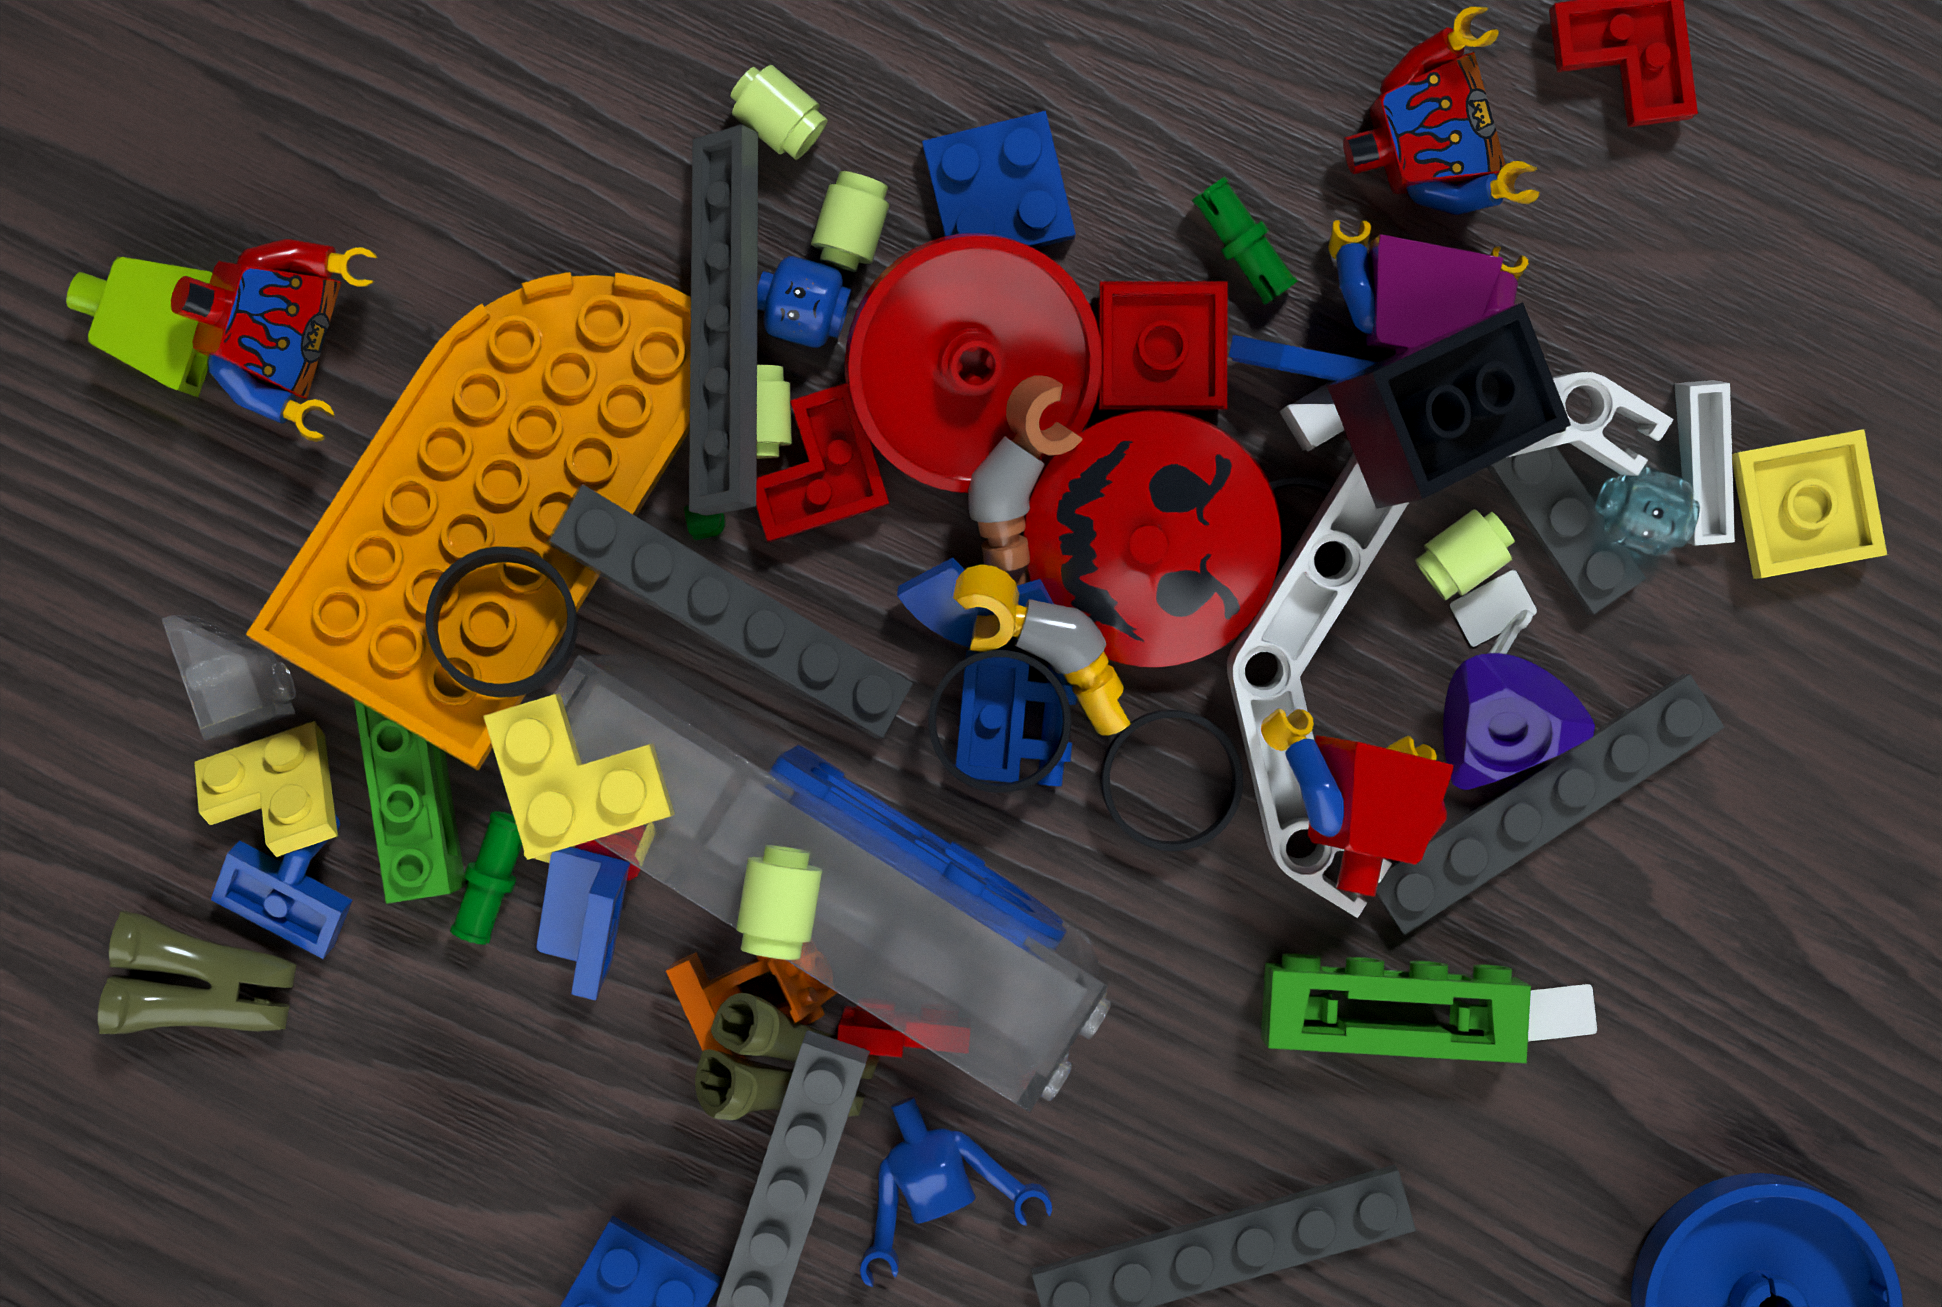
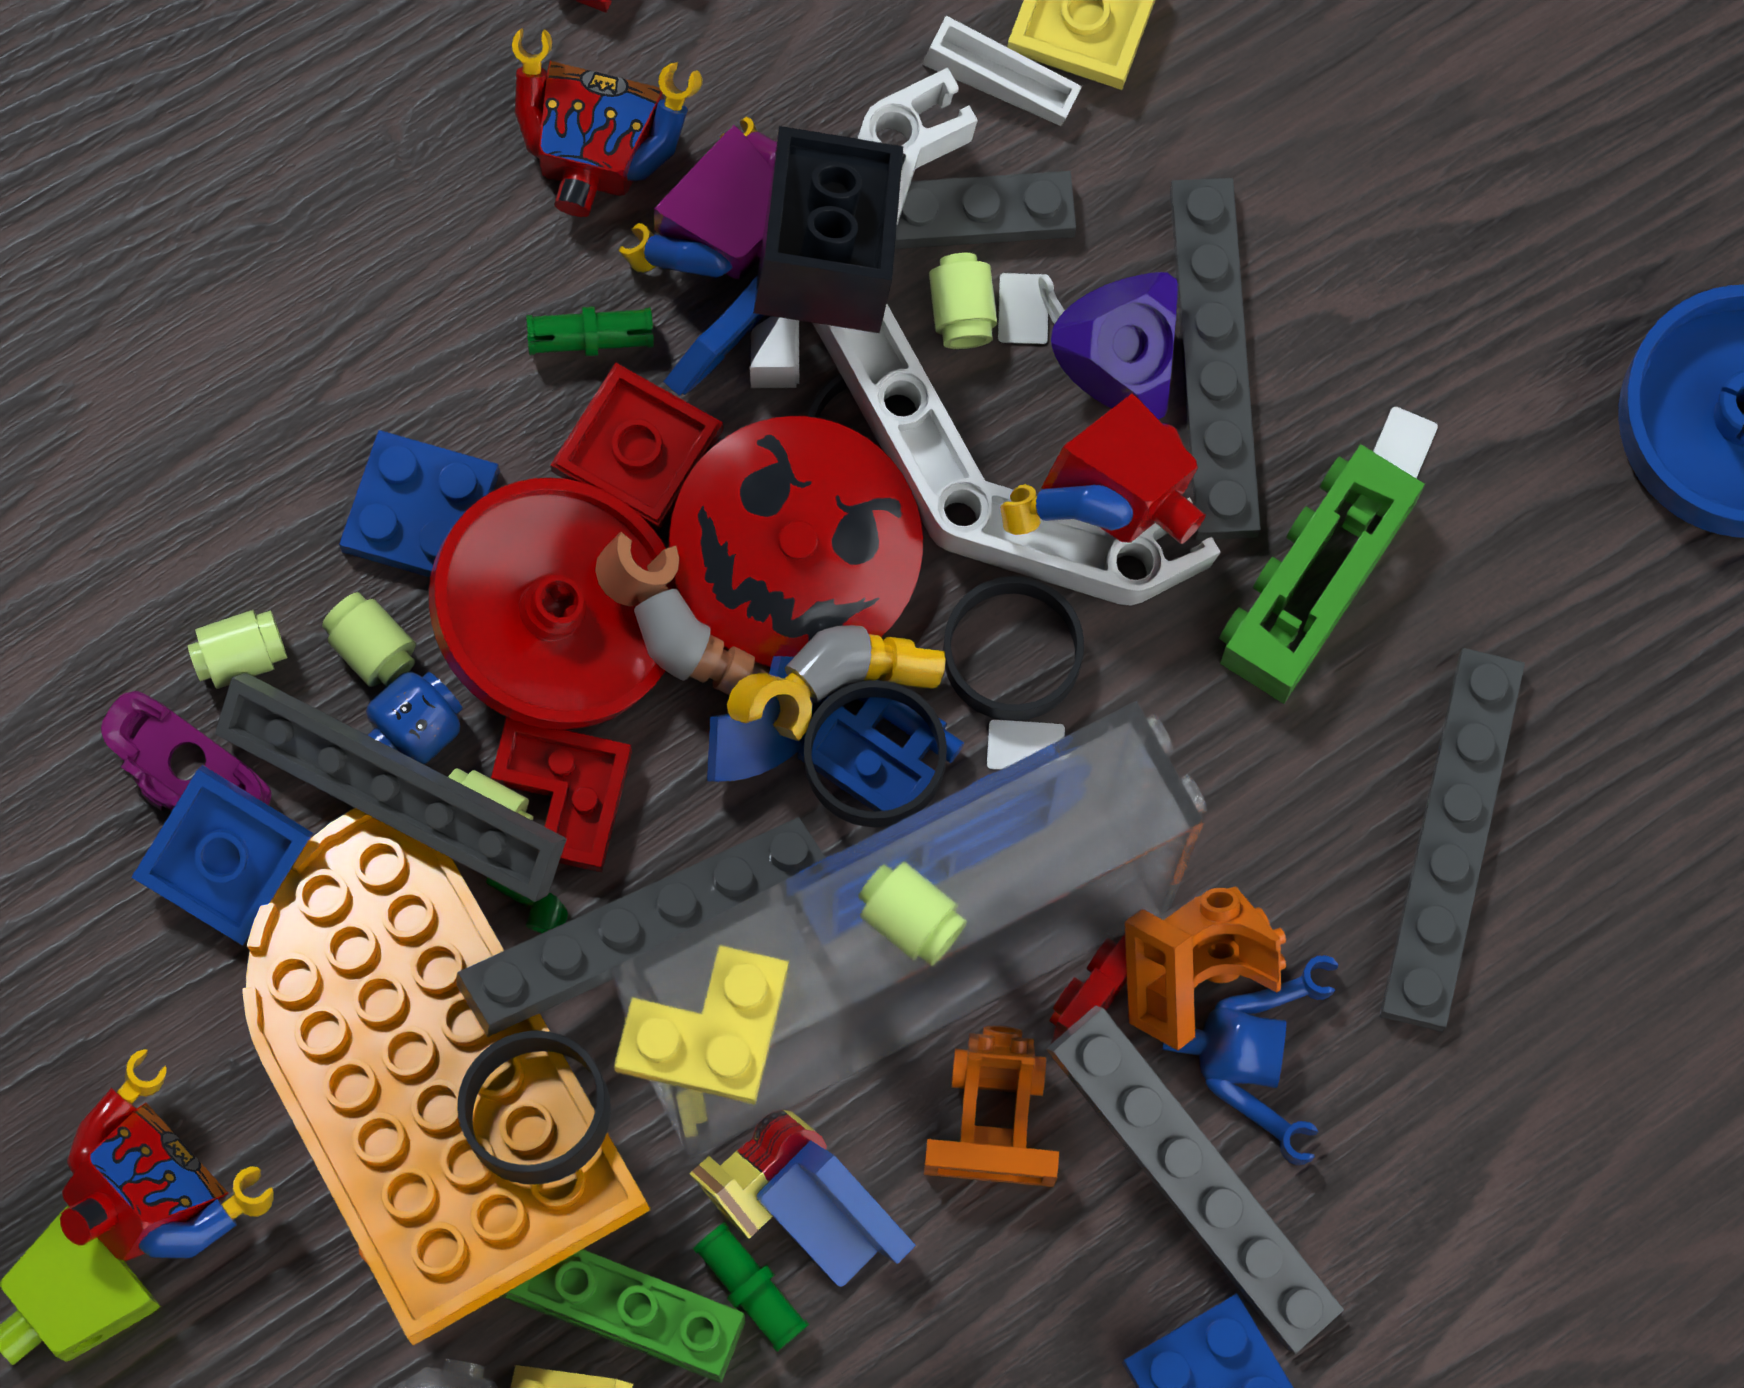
camera: 60 degrees left, 15 degrees down
(587, 213) = (221, 854): none -> blue plate
(655, 82) = (148, 734): none -> magenta piece
(736, 1086) = (1022, 1099): olive piece -> none
(934, 1089) = (1204, 940): none -> orange tile
(1093, 838) = (1018, 739): none -> white sticker
(1648, 511) = (1014, 136): clear light blue head -> none

